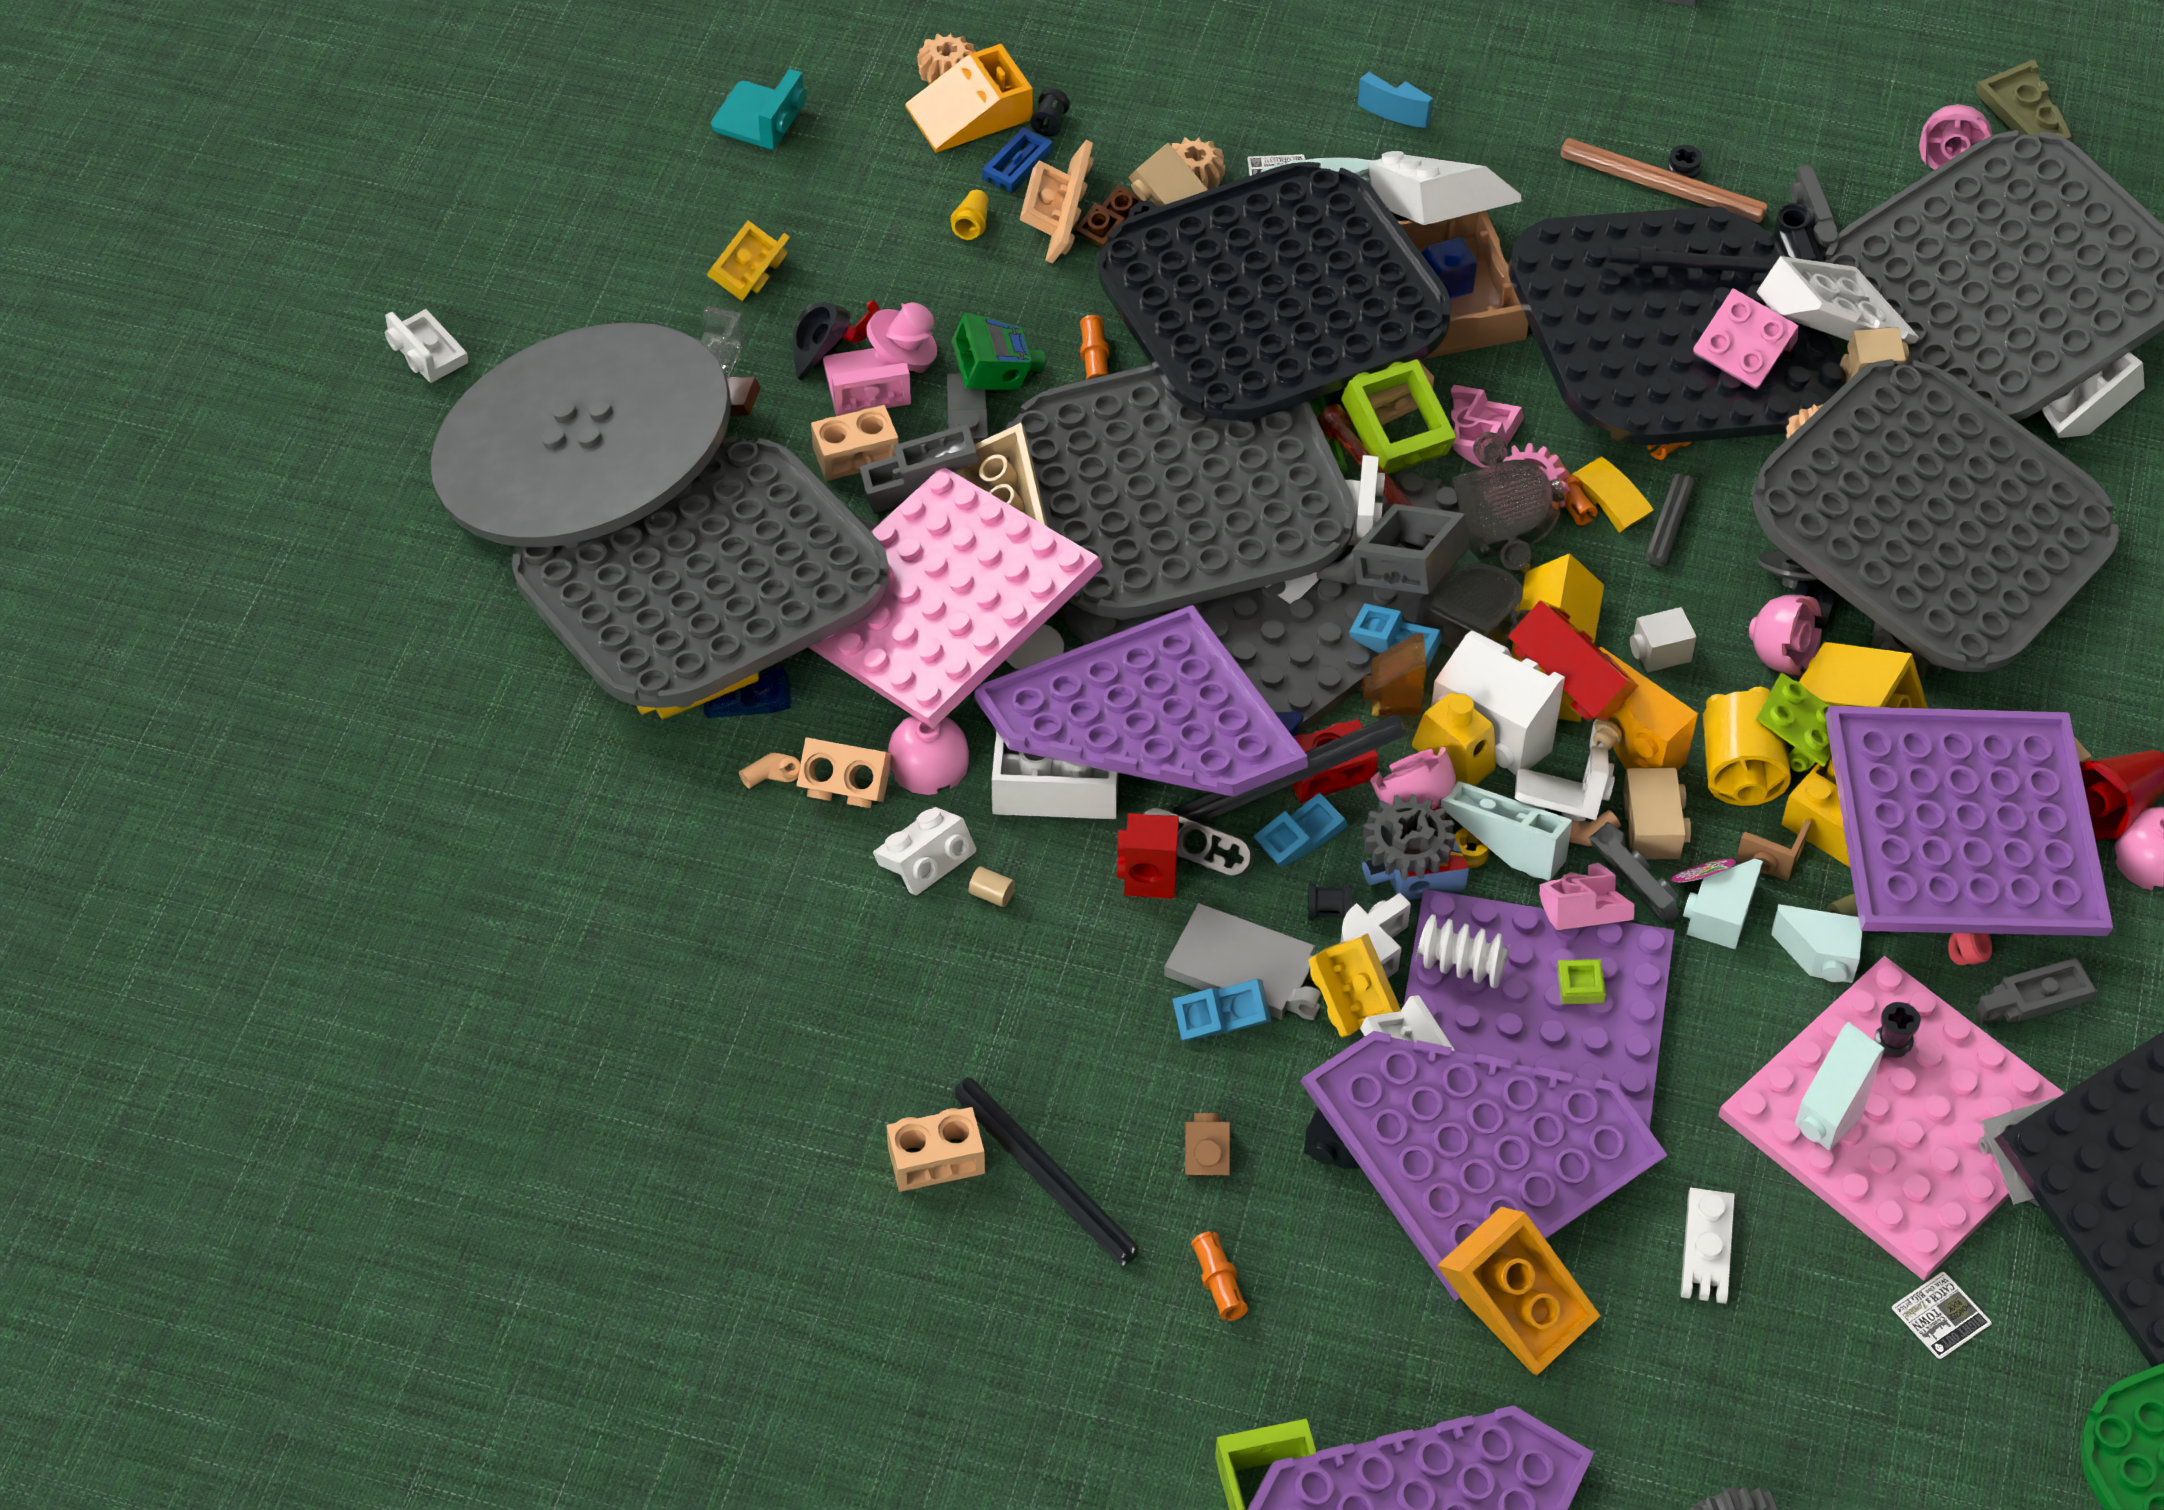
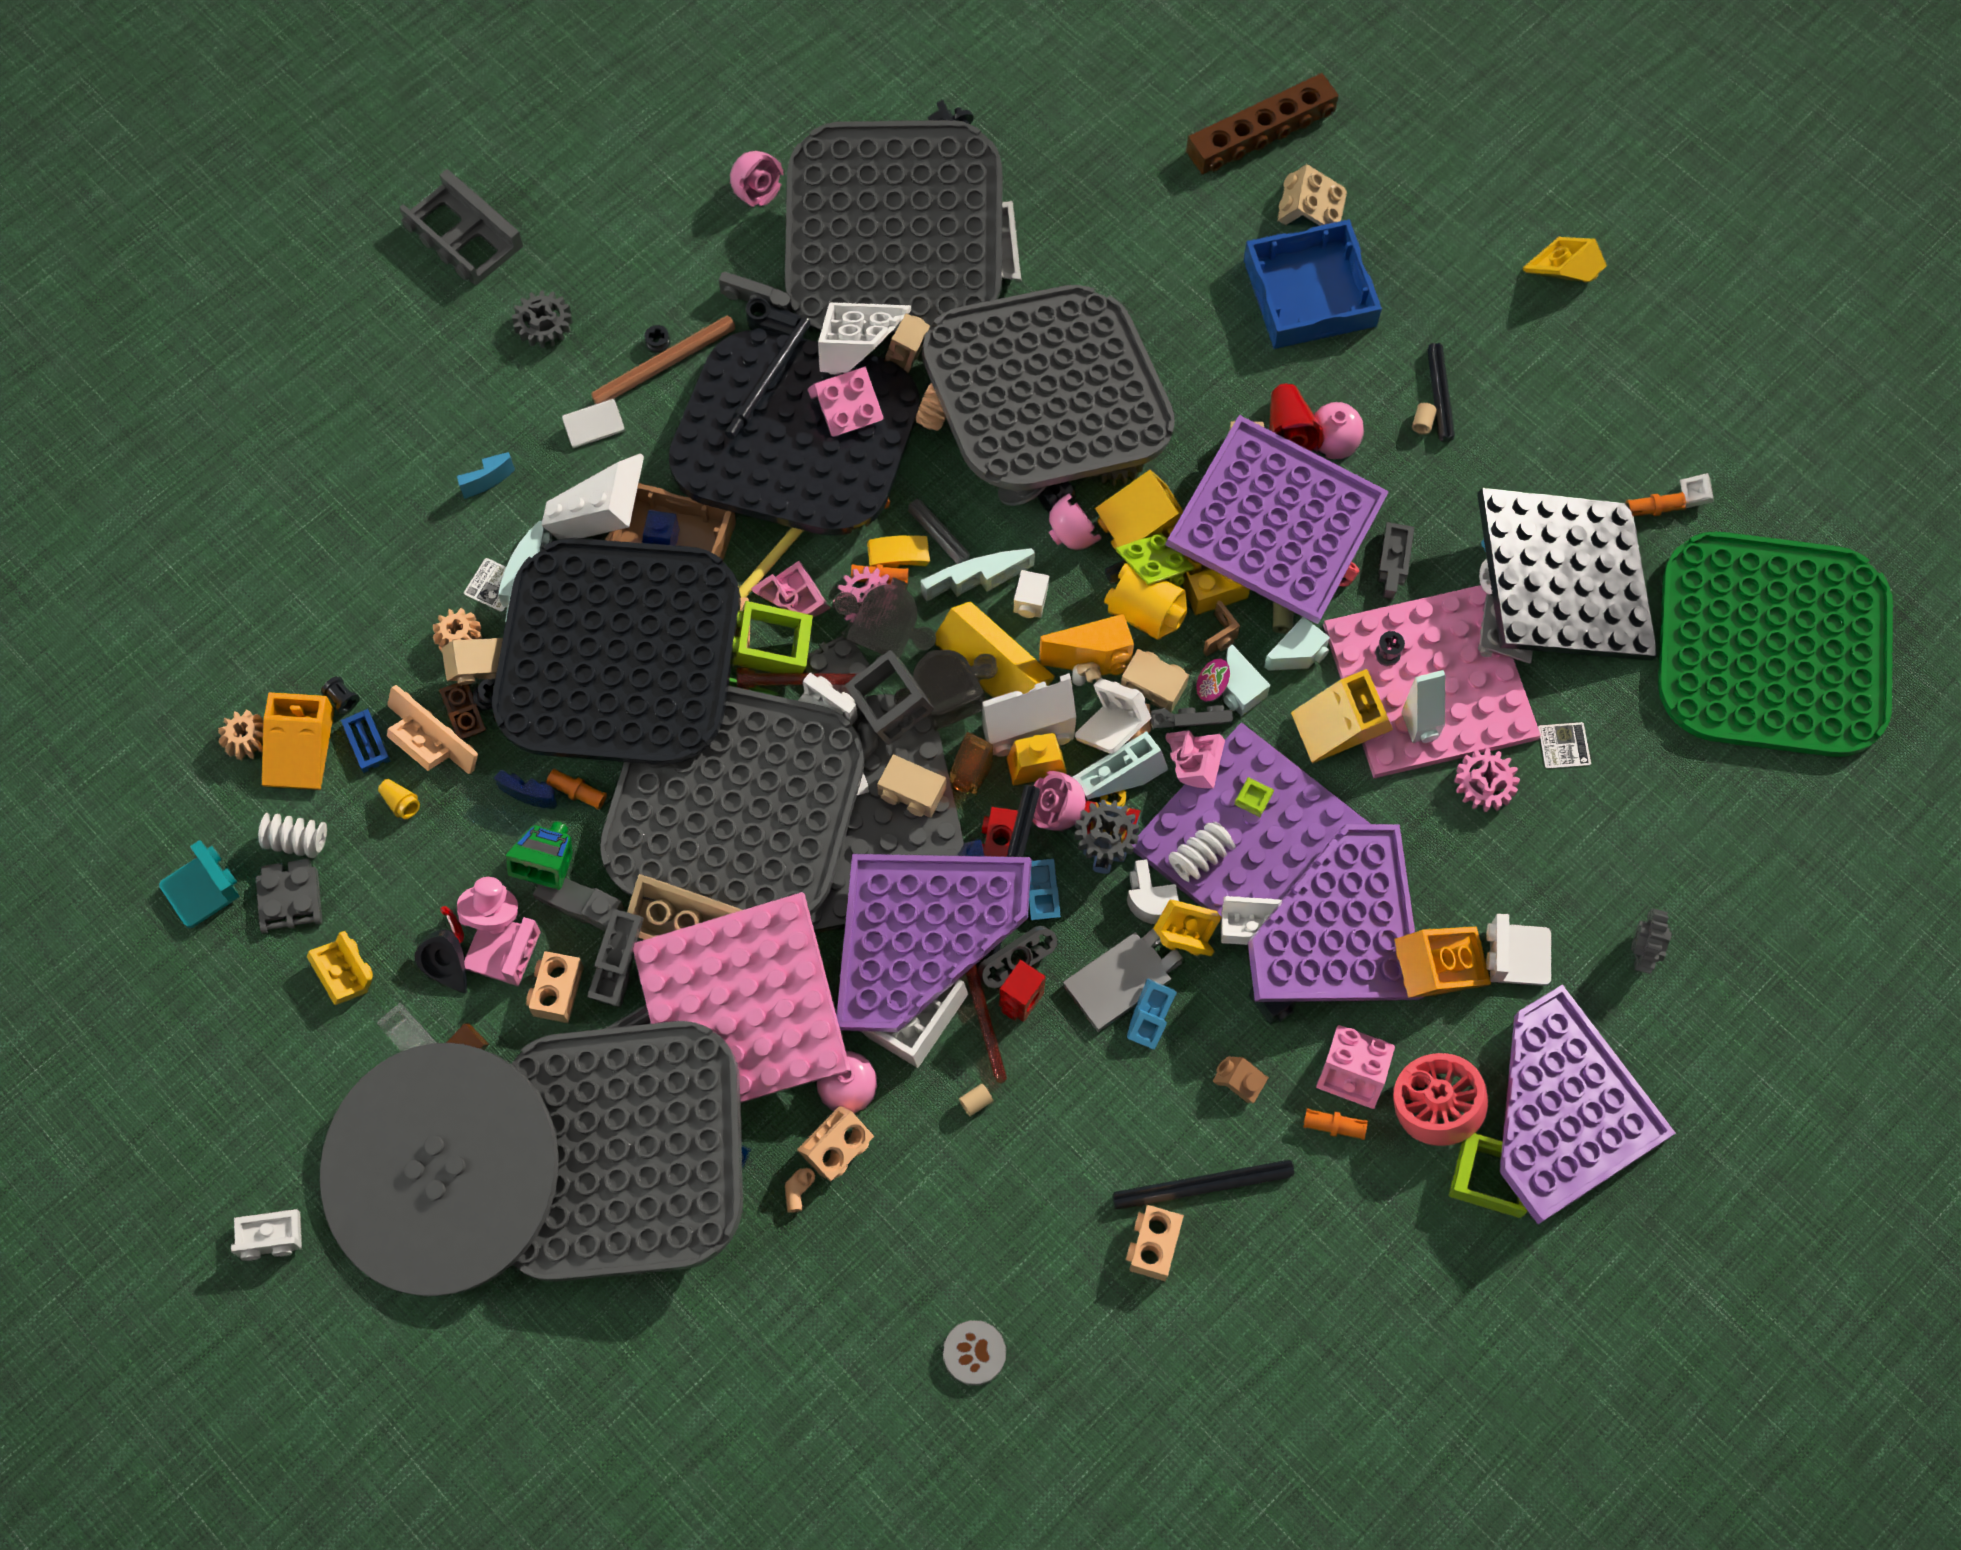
camera: 60 degrees left, 15 degrees up
(686, 1032) = (974, 1352): none -> light grey tile
(803, 183) = (288, 895): none -> dark grey plate
(866, 149) = (292, 837): none -> white piece
(926, 849) = (921, 1124): white bracket -> none
(1060, 310) = (530, 793): none -> clear blue slope
(1159, 795) = (986, 1025): none -> clear red piece
(1311, 1257) = (1356, 1066): none -> bright pink bracket
(1322, 629) = (911, 785): none -> tan brick
(1328, 901) = (1108, 904): black bush -> none
(1337, 1378) = (1440, 1099): none -> coral piece
(1384, 628) = (938, 747): dark azure slope -> none
(1499, 387) = (769, 561): none -> light yellow piece
(1534, 158) = (593, 423): none -> white slope
(1559, 647) = (1048, 660): red wedge -> none
(1599, 1378) = (1518, 953): none -> white bracket
(1618, 55) = (541, 317): none -> dark grey gear
(1637, 569) = (984, 570): none -> light aqua slope
(1707, 1243) = (1458, 839): white hinge -> none
(1768, 1025) = (1341, 717): none -> yellow slope
(1812, 1235) = (1476, 786): none -> bright pink gear
(2023, 101) = (748, 122): olive wing -> none

